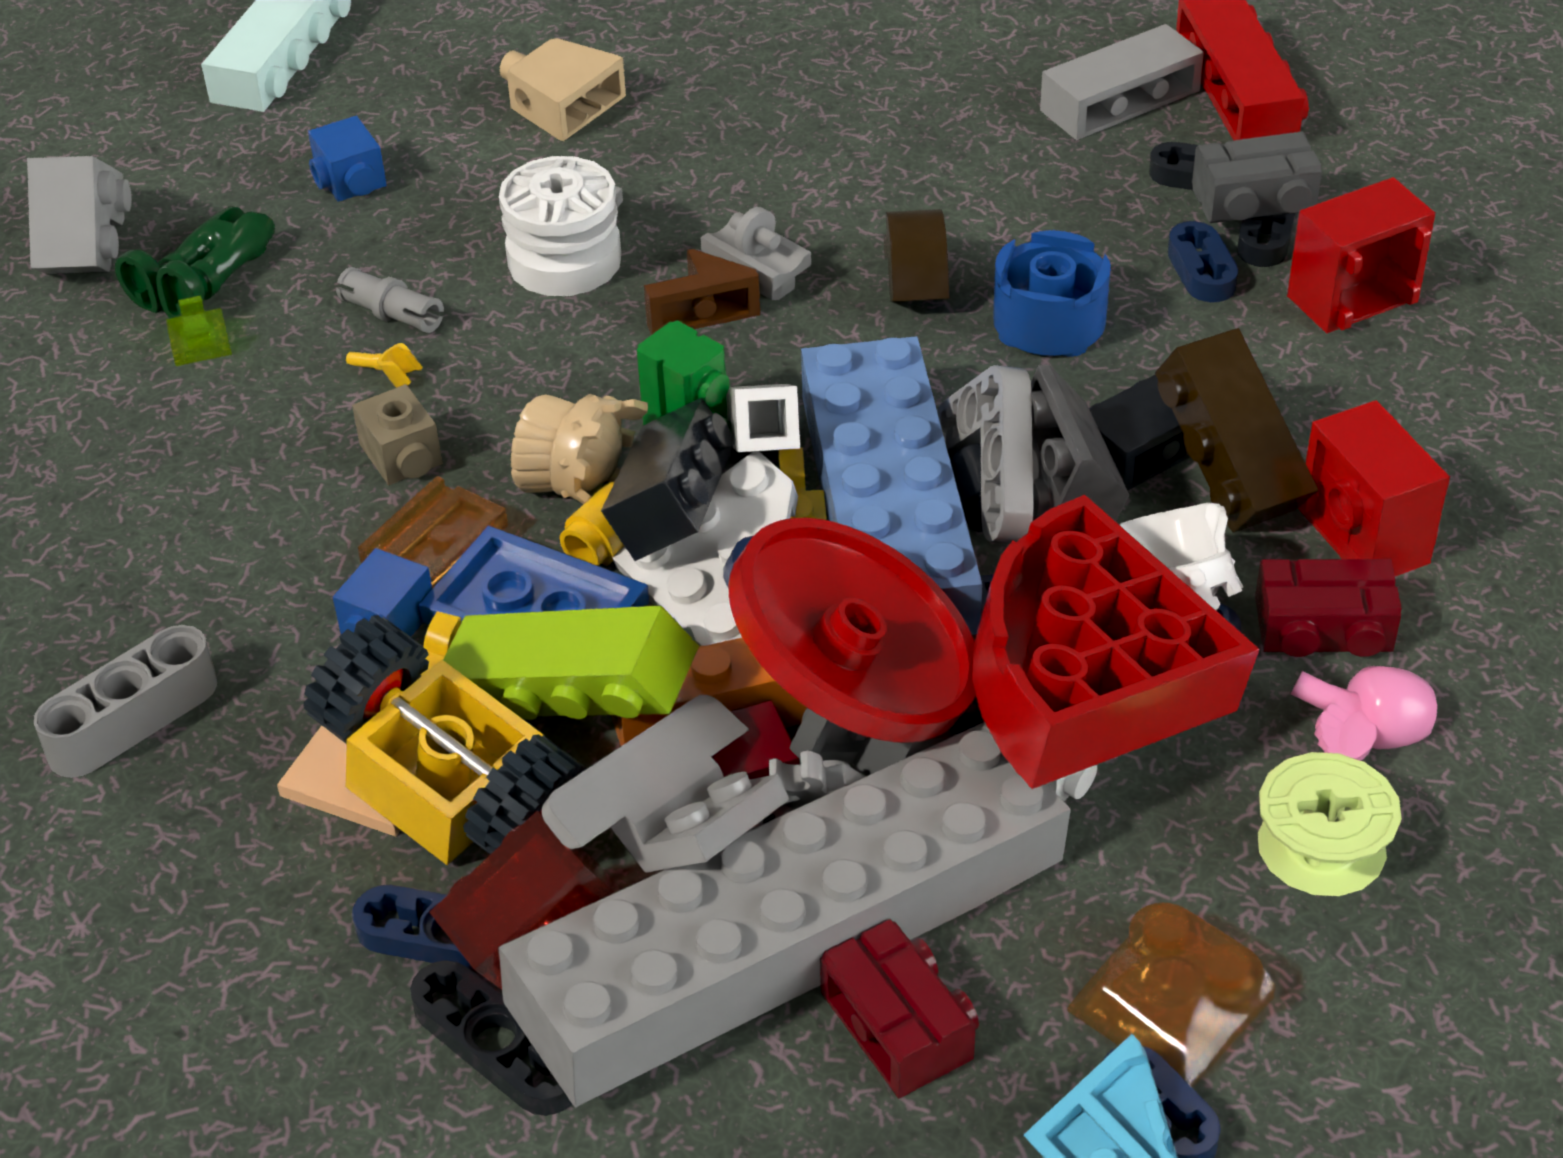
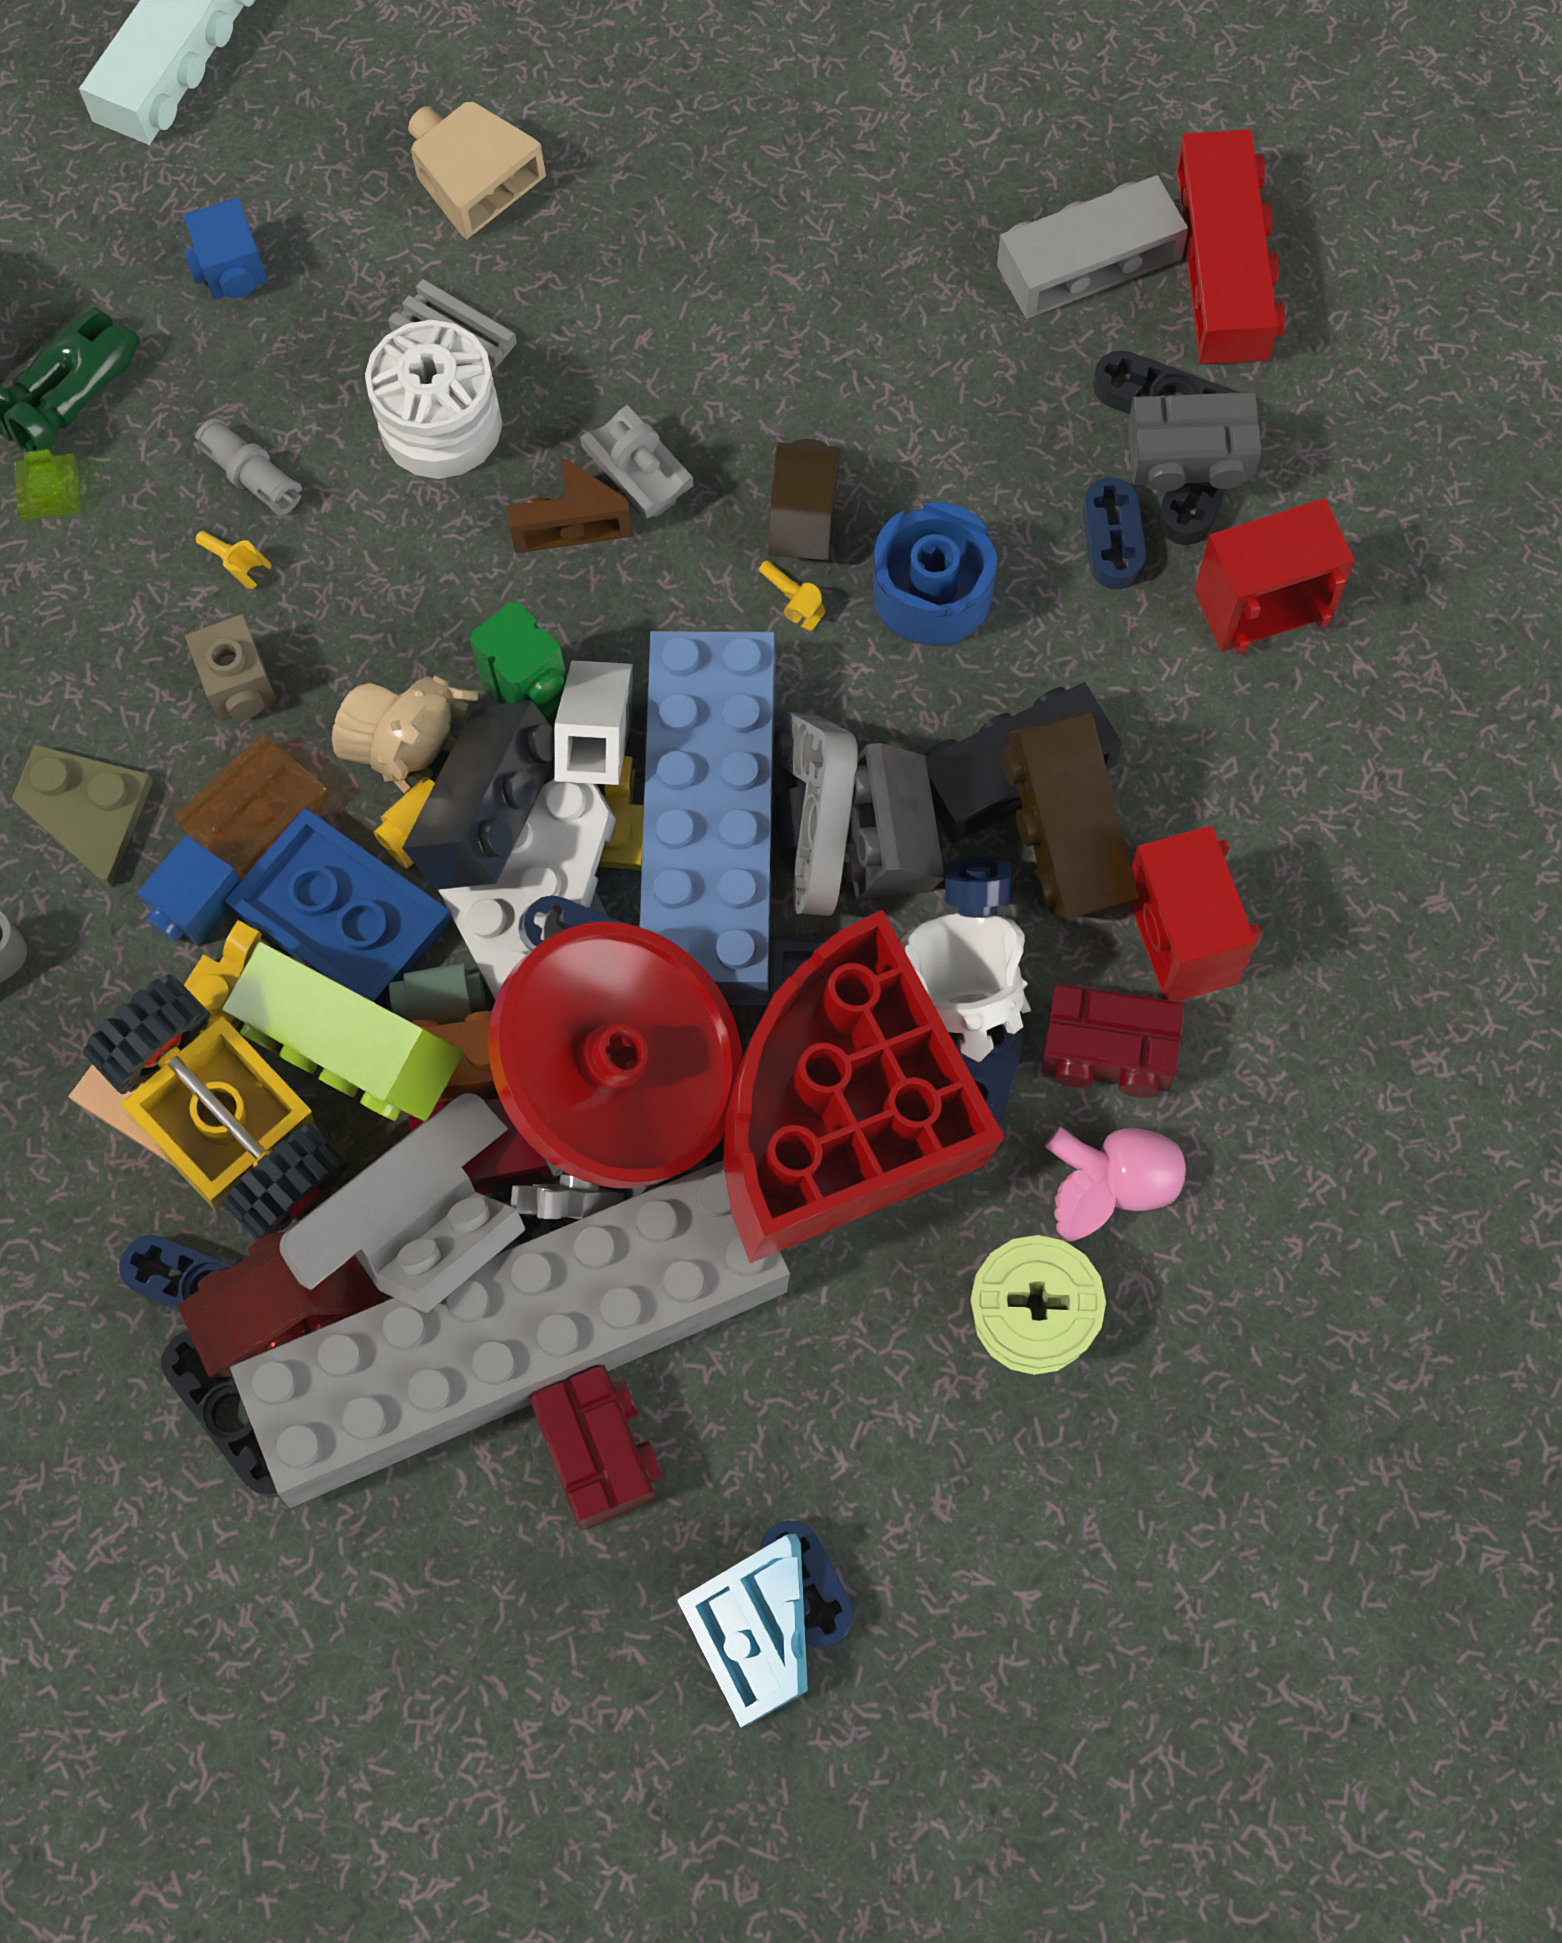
camera: 10 degrees right, 25 degrees up
(262, 559) = (83, 806): none -> olive wing
(927, 335) = (804, 599): none -> yellow hand
(1162, 491) = (978, 885): none -> dark blue plate
(1176, 989) = (848, 1467): clear orange slope -> none

